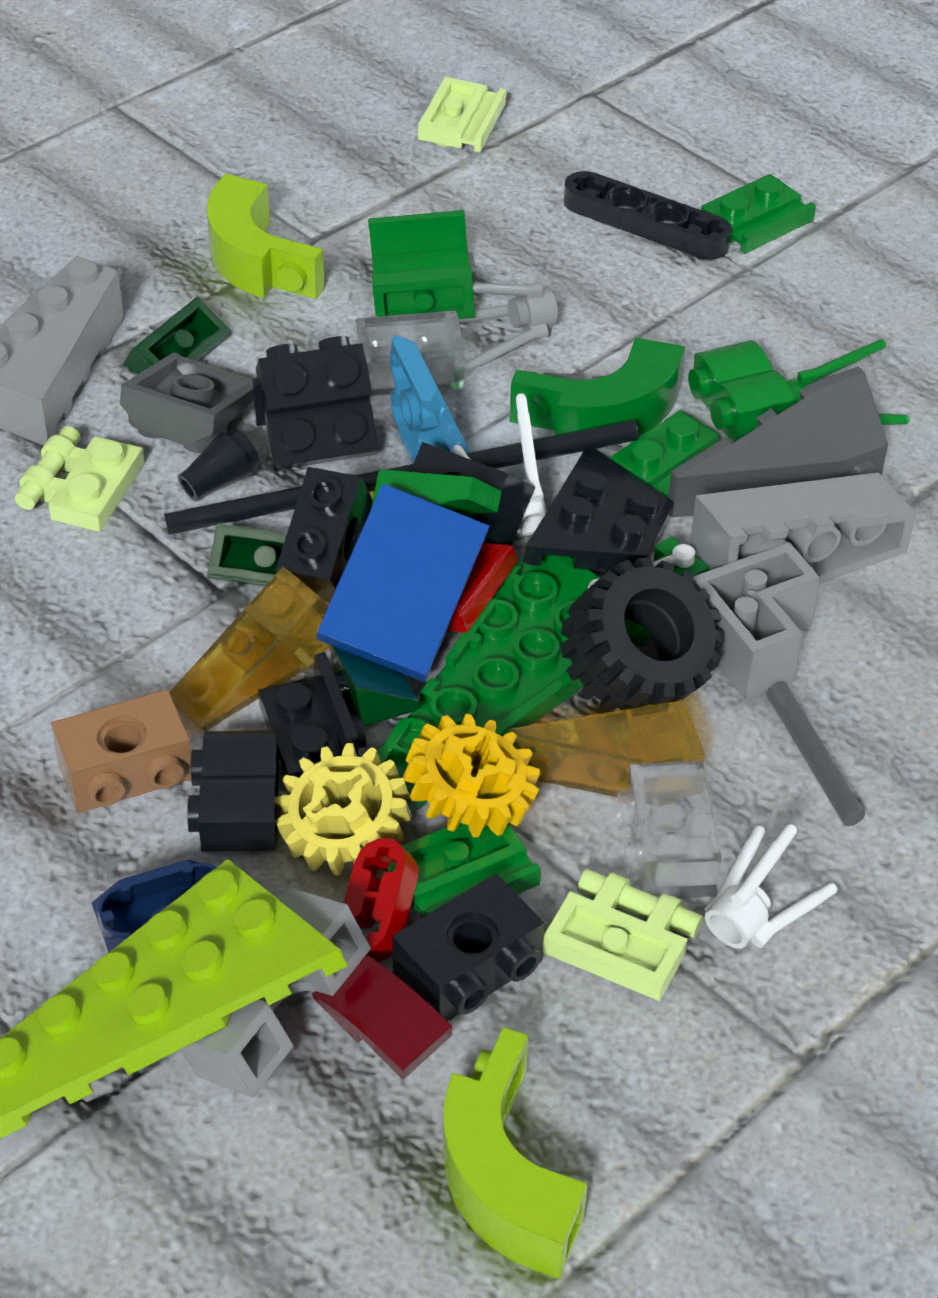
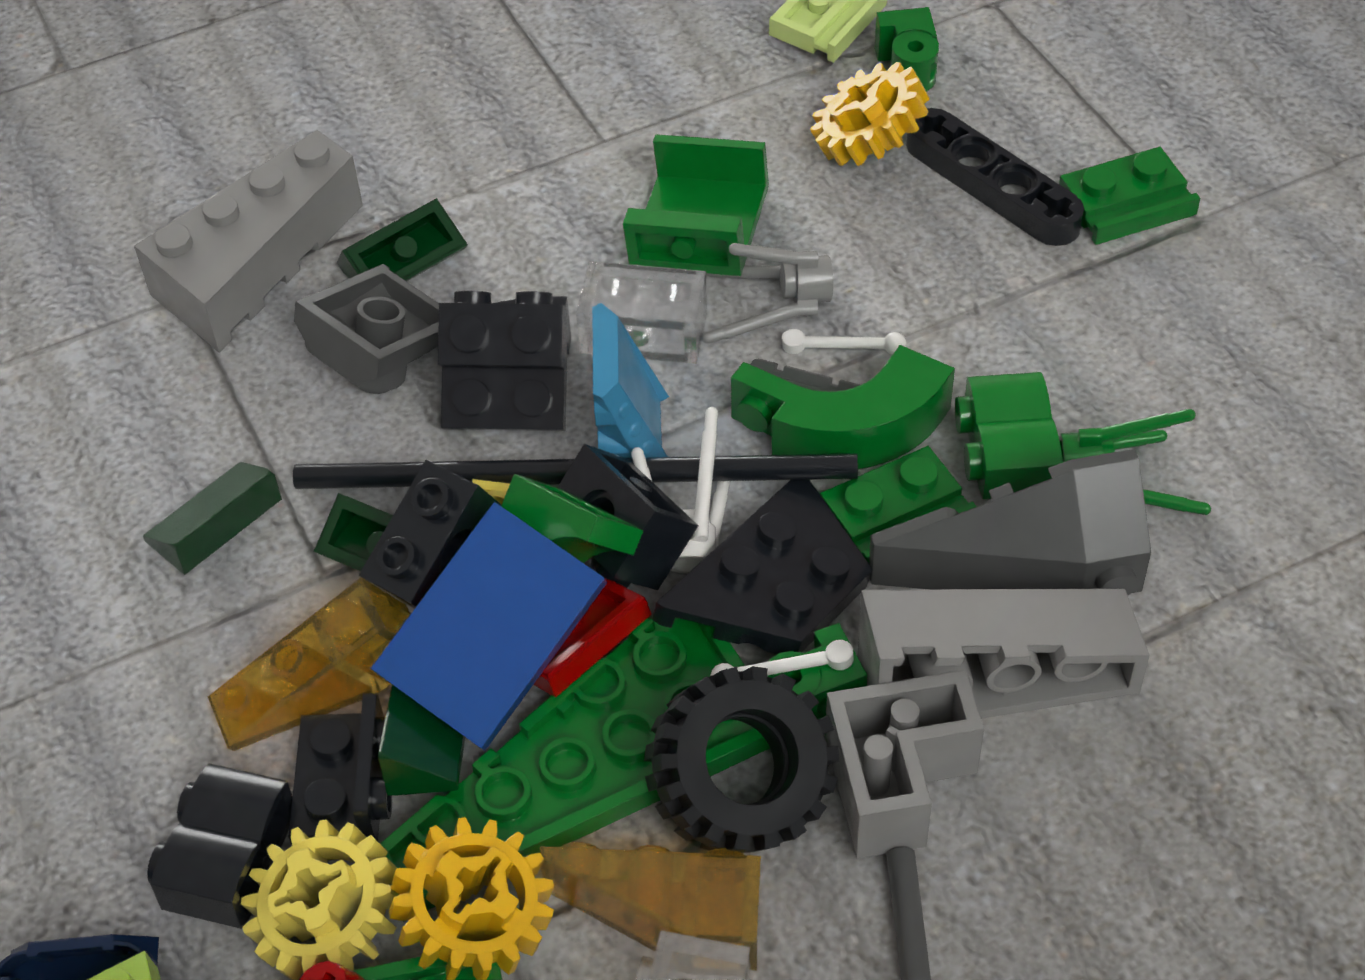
camera: 20 degrees right, 5 degrees up
(95, 481) = (241, 411): yellowish green plate -> none
(109, 564) = (214, 516): none -> dark green slope
(122, 750) = (89, 747): medium nougat brick -> none
(221, 463) = (377, 416): black cone -> none
(248, 254) = (514, 113): lime arch -> none
(534, 181) = (870, 114): none -> yellow gear
(538, 358) = (795, 341): none -> white hinge
(542, 129) = (910, 39): none -> green leg

